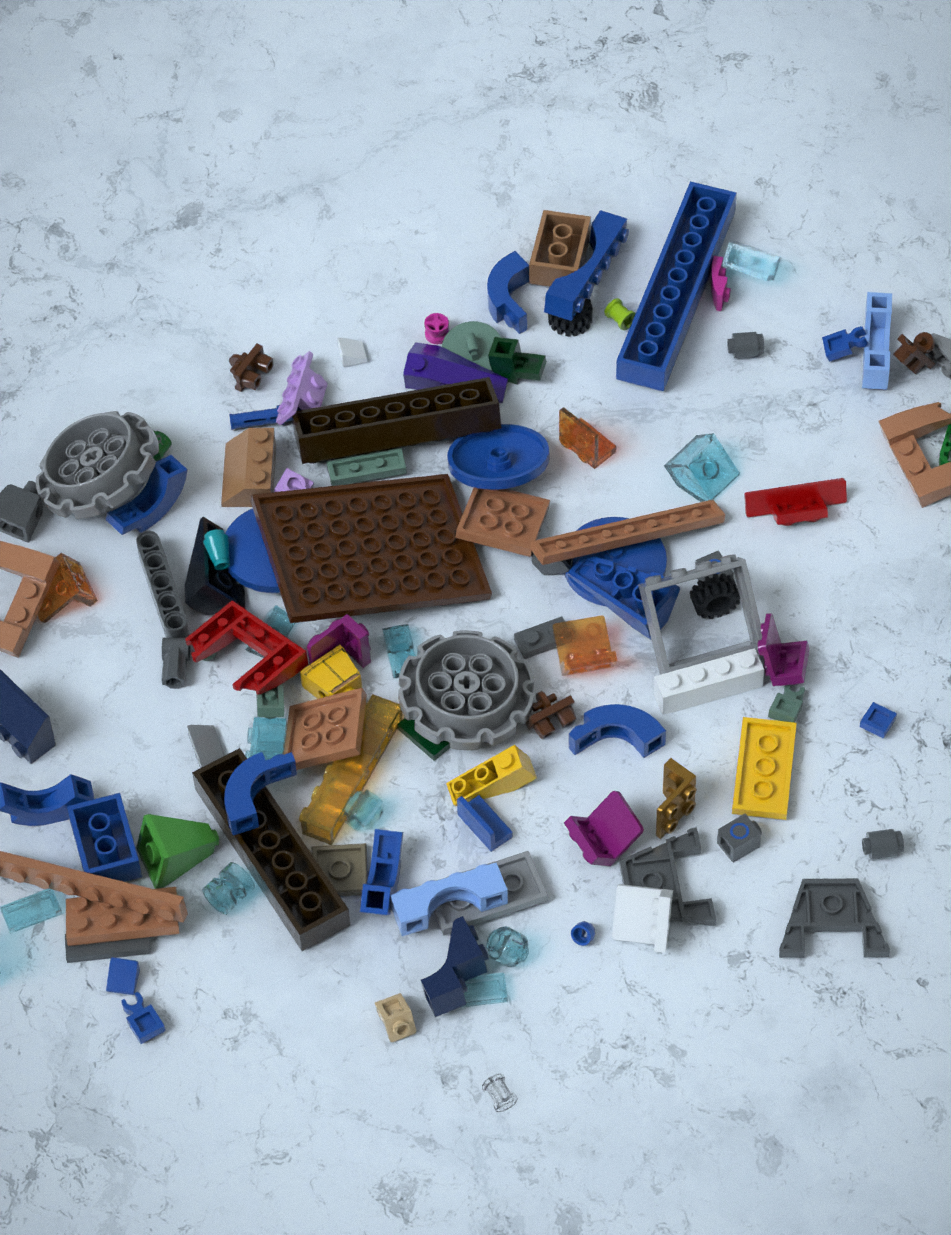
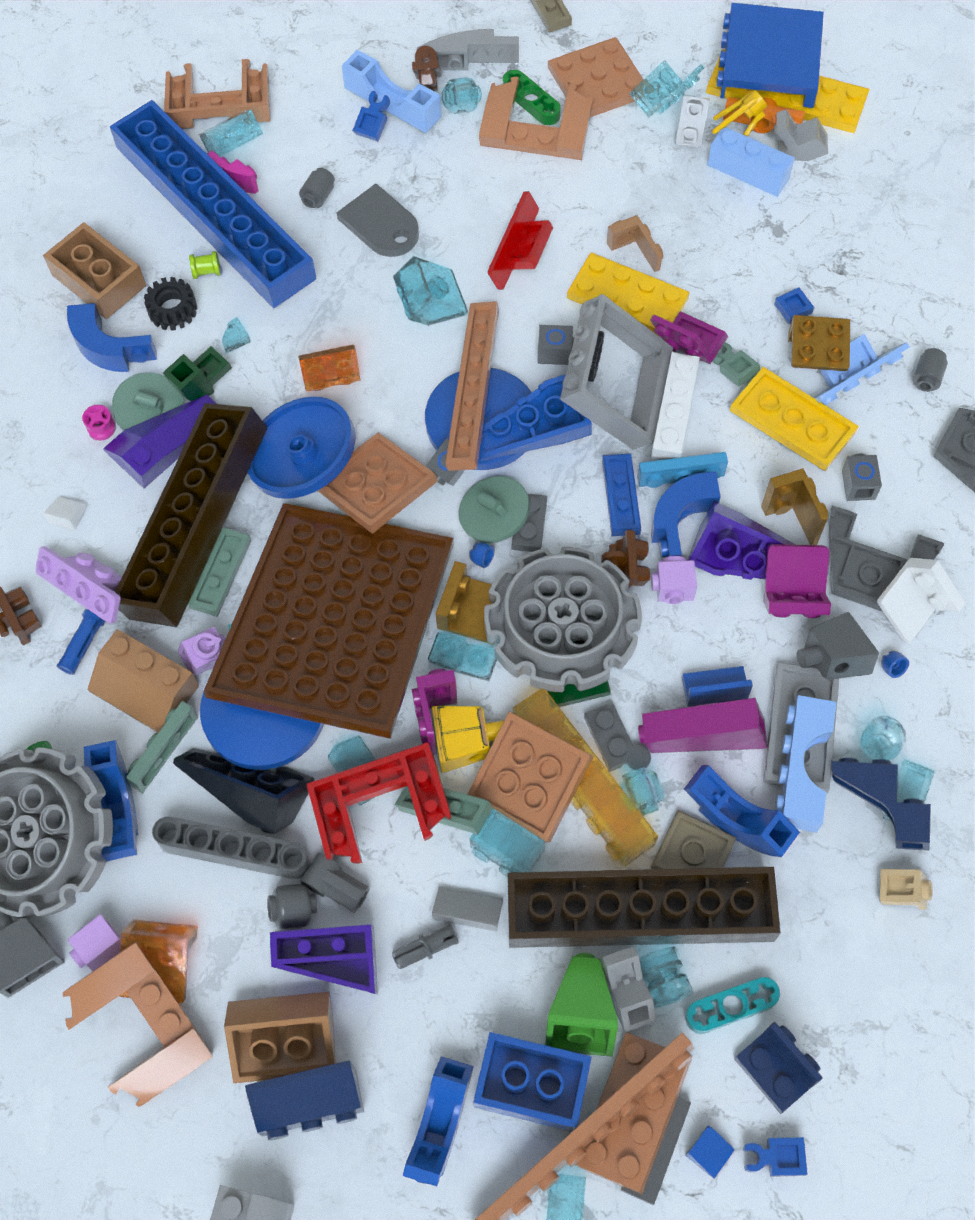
camera: 60 degrees left, 10 degrees up
(49, 543) = (95, 943): none -> lavender brick
(52, 682) = (279, 1036): none -> medium nougat slope
(120, 681) = (329, 954): none -> dark purple wedge
(142, 643) = (291, 906): none -> dark grey head
(163, 737) = (424, 947): none -> dark grey axle
(200, 871) = (628, 990): none -> light grey brick
(205, 989) = (779, 1067): none -> dark blue bracket
(208, 506) = (161, 746): none -> sand green plate
(217, 546) = (235, 763): teal cone -> none
(241, 956) = (752, 988): none -> teal beam
(247, 782) = (581, 905): blue arch -> none
(396, 778) = (614, 741): none -> dark grey hinge
(439, 618) = (463, 605): none -> pearl gold bracket
(439, 826) = (705, 728): none -> magenta slope
(492, 626) = (482, 554): none -> blue hinge
(494, 776) = (670, 654): yellow slope -> none
(535, 607) = (494, 509): none -> sand green shield
(555, 752) = (674, 580): none -> lavender brick
(563, 881) = (839, 649): none -> dark grey torso
(569, 292) = (159, 281): blue arch -> none
(573, 369) = (234, 336): none -> clear light blue tile
(583, 645) = (572, 492): clear orange bracket -> none
(611, 684) = (621, 494): none -> blue tile
(615, 767) = (732, 544): none -> dark purple wedge
(648, 701) = (672, 470): none -> dark azure plate
(749, 401) = (379, 220): none -> dark grey tile
(797, 259) = (185, 106): none -> nougat wedge
(804, 601) = (629, 289): none -> yellow plate
(844, 749) = (820, 343): none -> pearl gold bracket
(847, 783) = (862, 362): none -> light blue bracket
(864, 571) = (633, 230): none -> medium nougat bracket
(915, 389) = (461, 95): none -> clear light blue head

